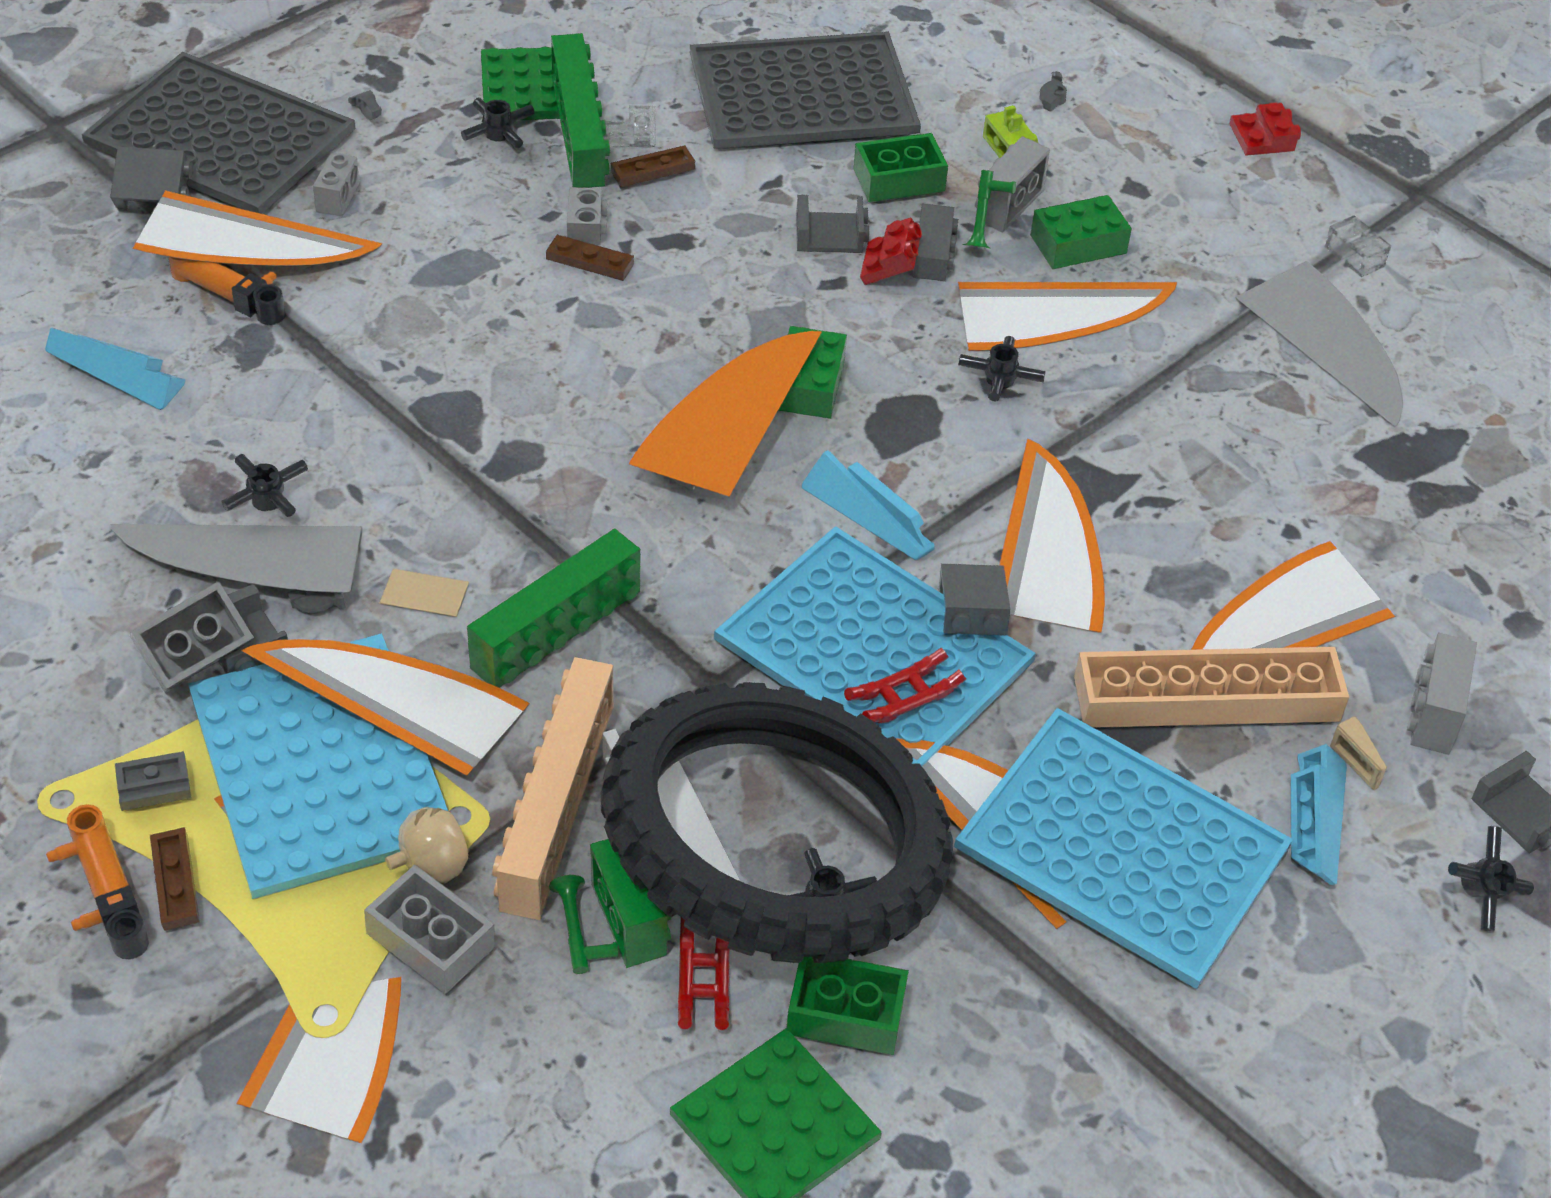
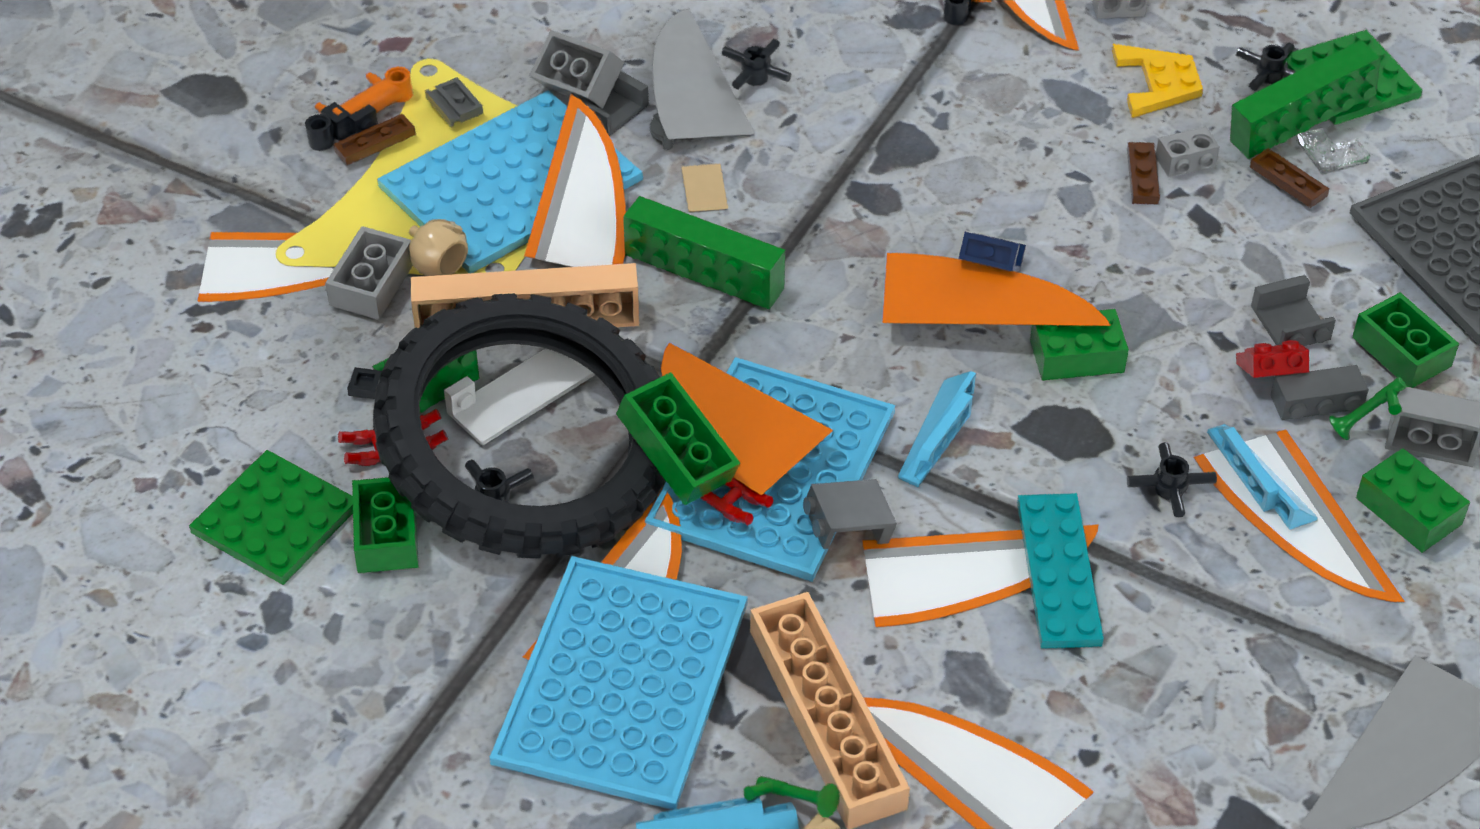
camera: 75 degrees right, 0 degrees up
(138, 880) = (363, 119): none -> black plate
(463, 195) = (1169, 77): none -> yellow wing
(602, 981) = (364, 383): none -> black plate
(669, 390) = (992, 251): none -> dark blue panel
(822, 648) = (755, 427): none -> orange sticker
(865, 685) = (677, 438): none -> green brick
(1011, 314) = (1259, 479): none -> medium azure wedge
(1078, 479) = (1059, 571): none -> teal plate
(1286, 758) = (826, 799): none -> green piece

